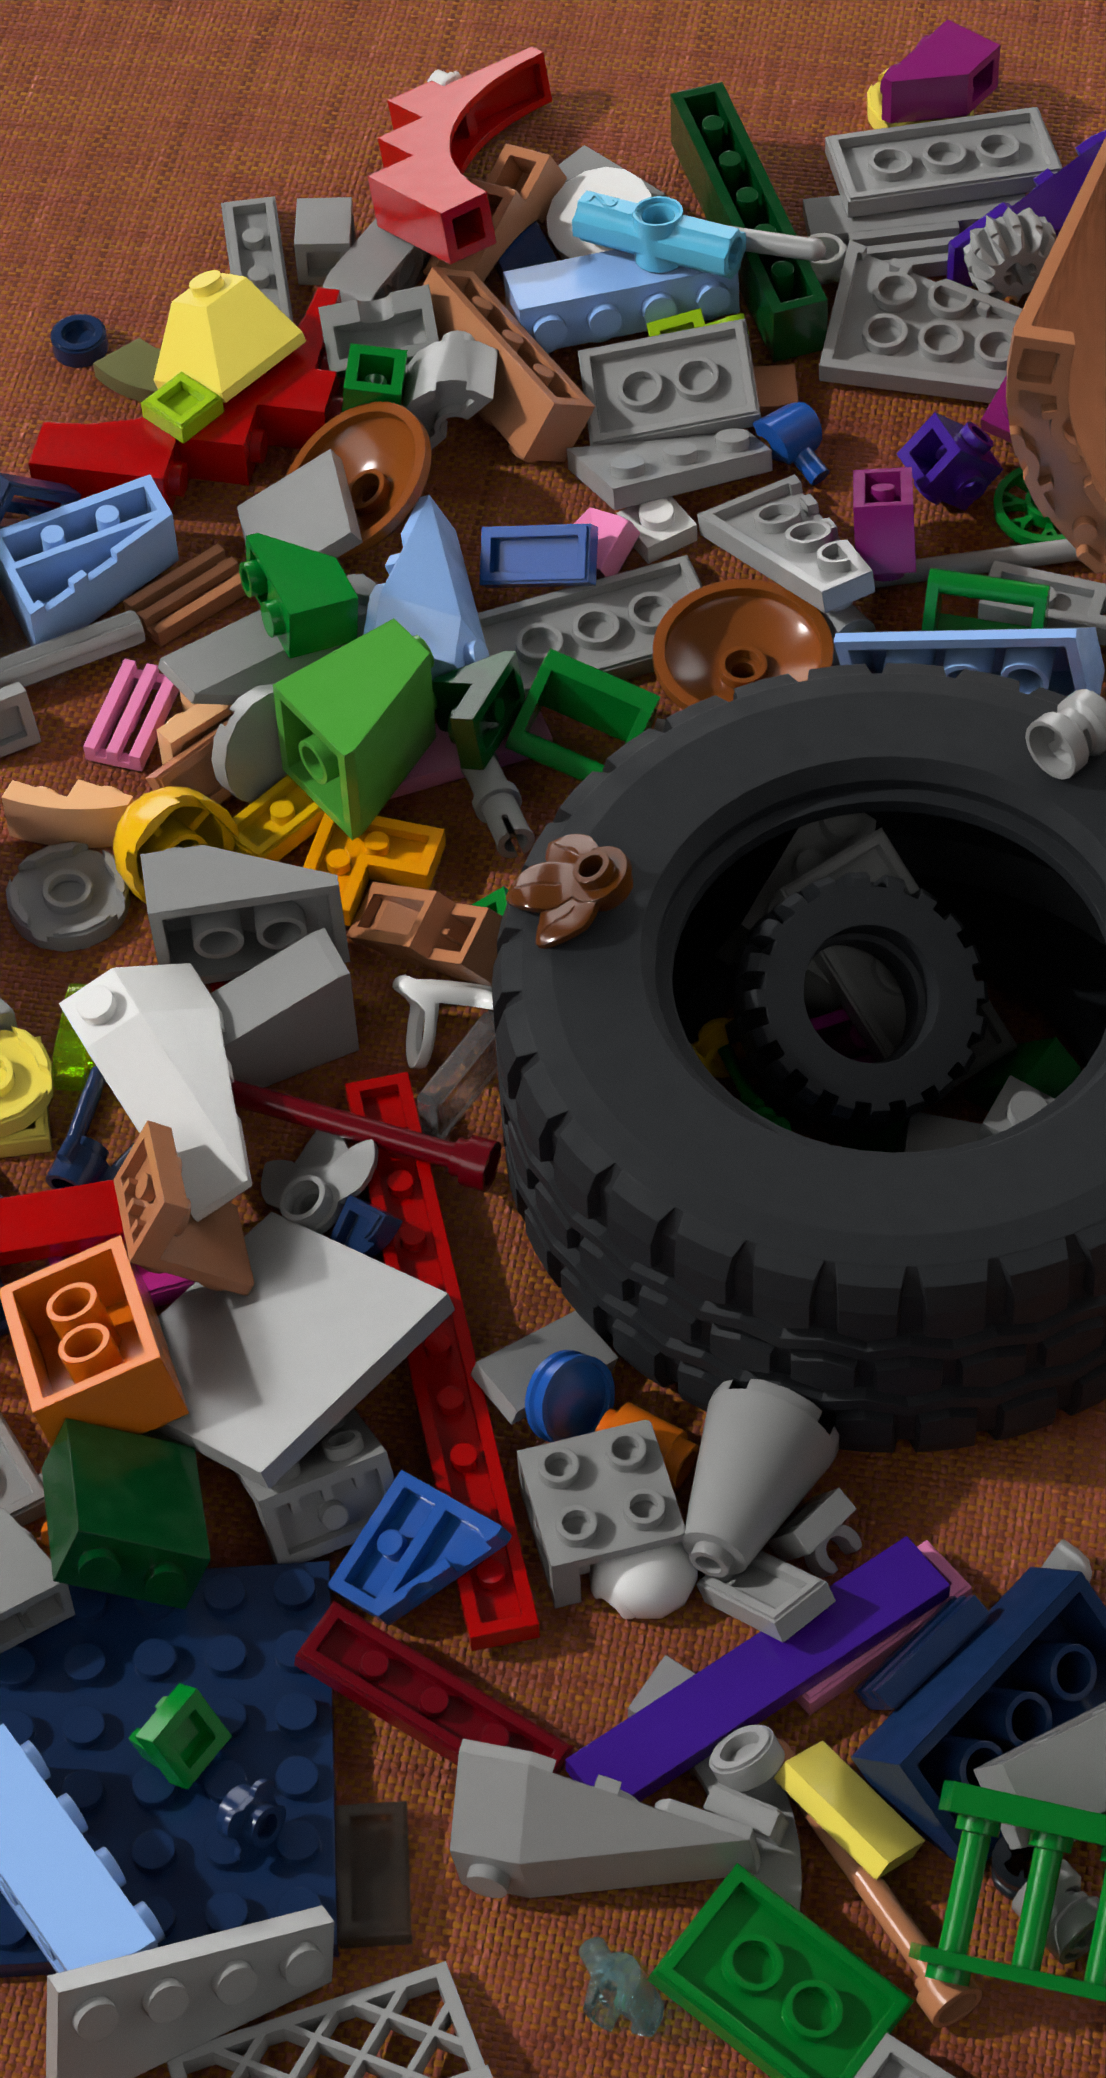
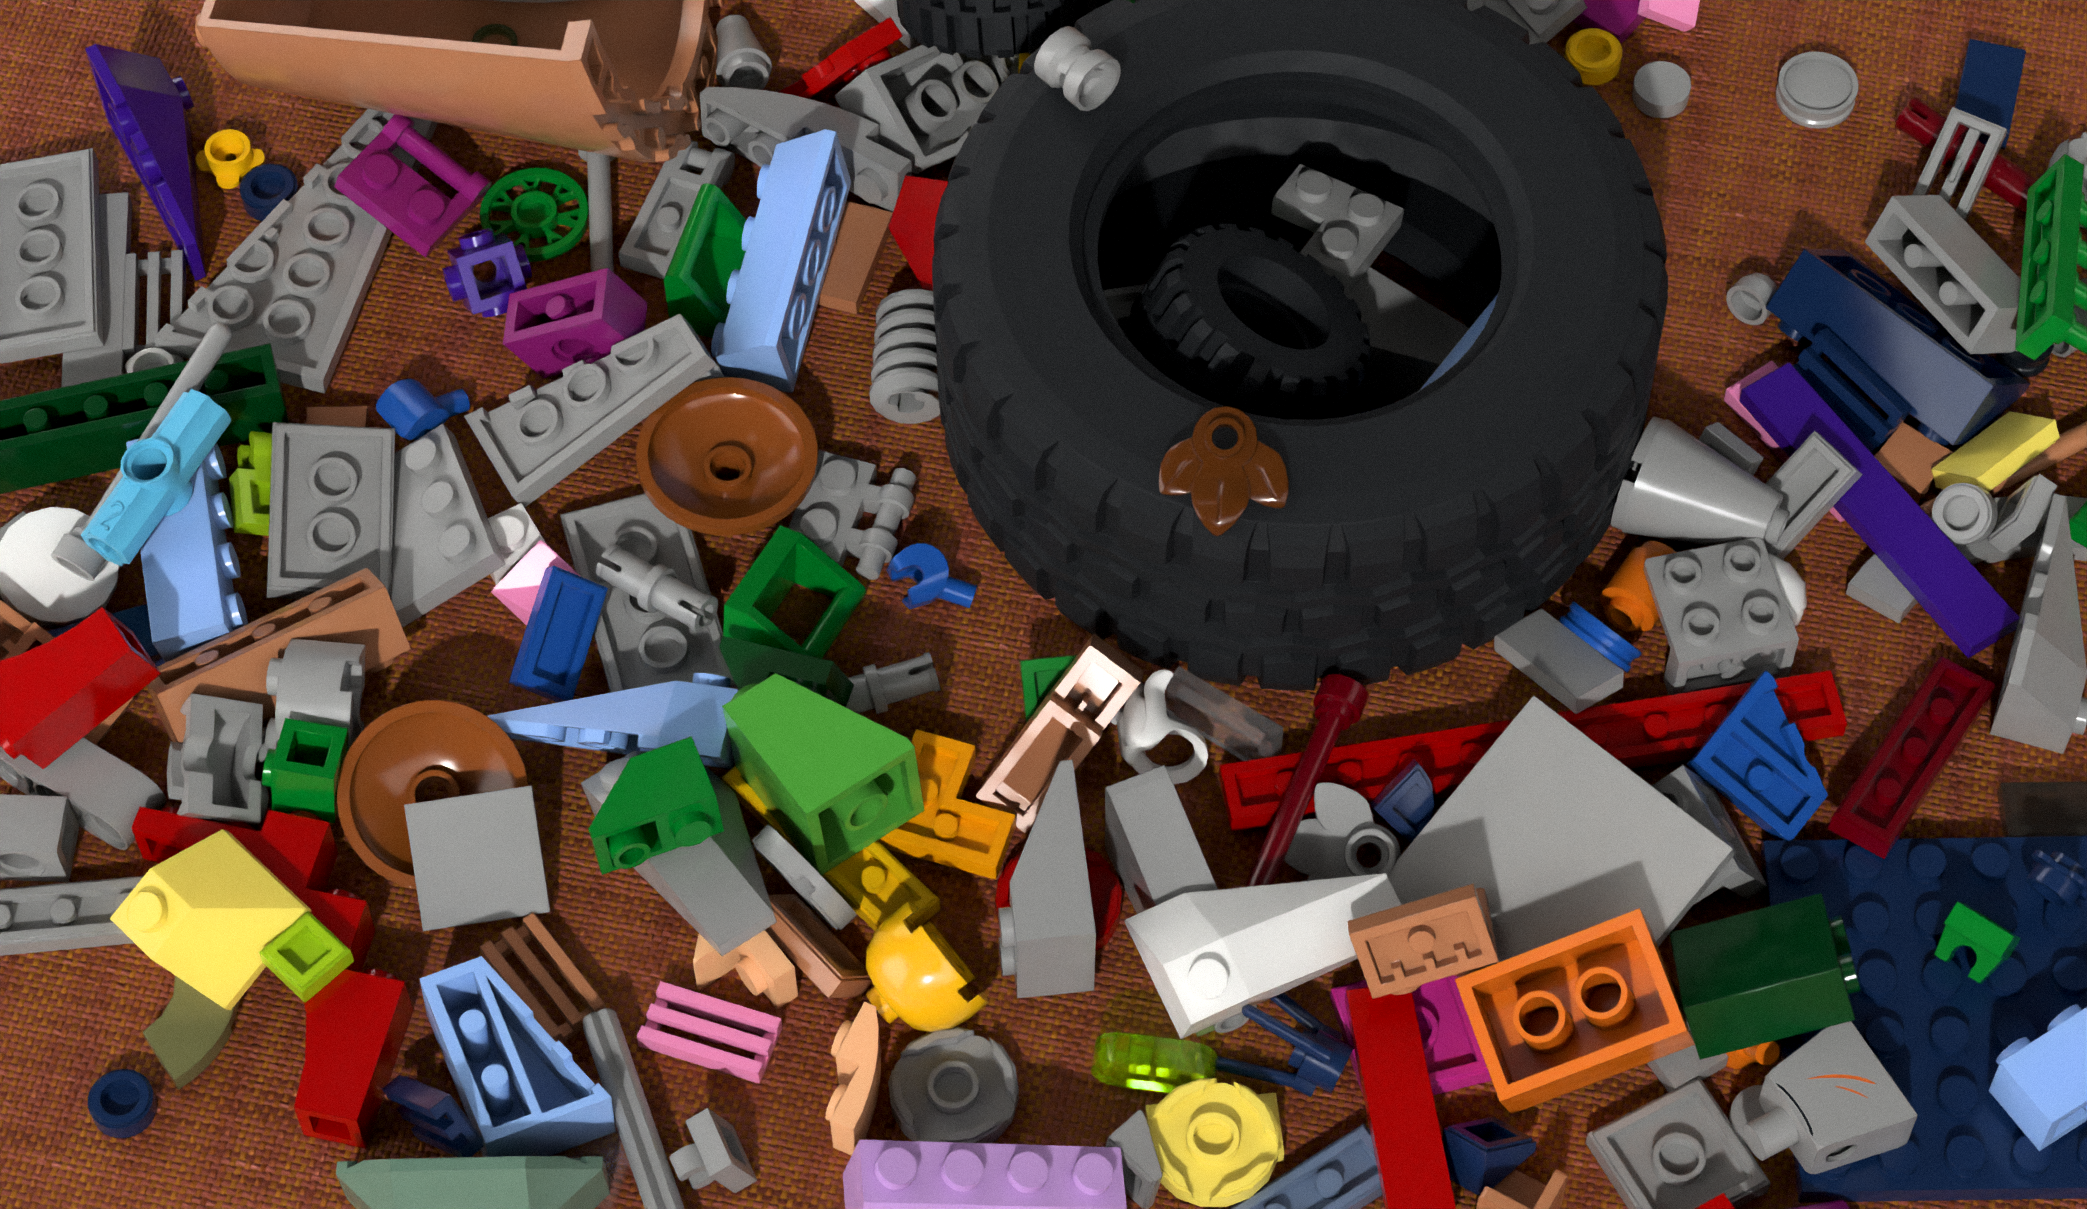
camera: 90 degrees left, 5 degrees up
(592, 614) = (657, 588): none -> light grey pin
(841, 1723) = (1910, 459): none -> nougat tile
(1009, 253) = (220, 192): light grey gear -> none

